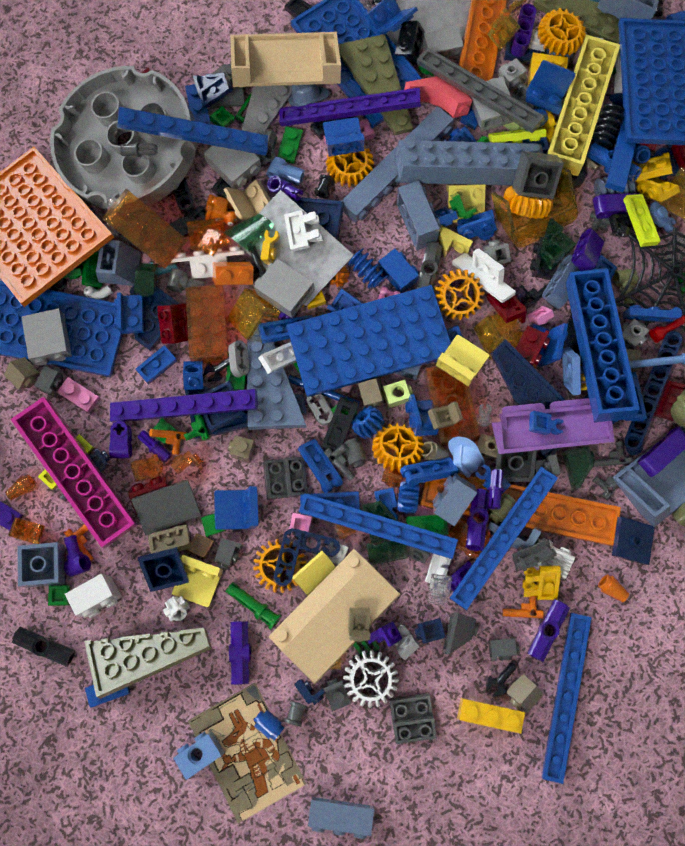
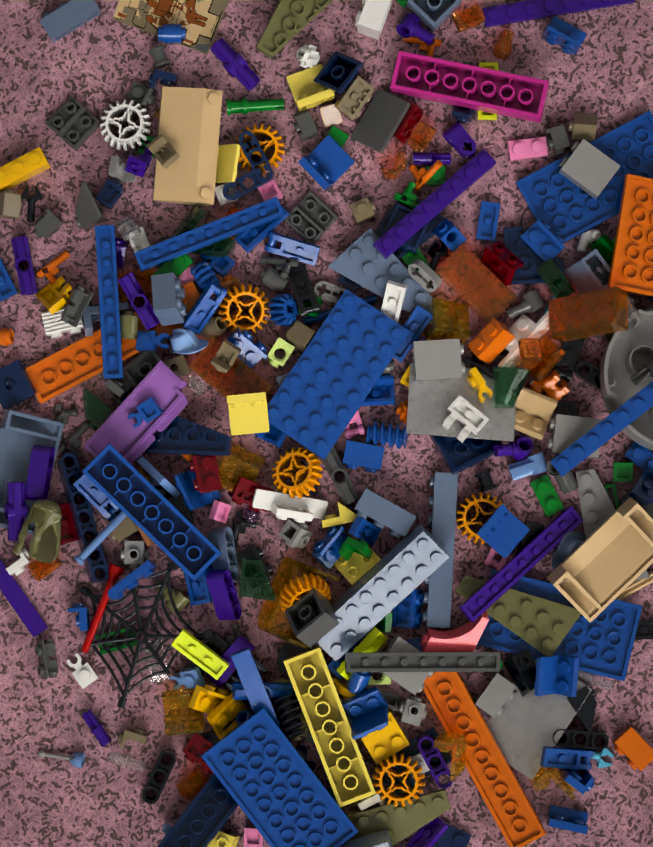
camera: 140 degrees right, 10 degrees up
(495, 489) = (143, 332): dark purple axle -> none

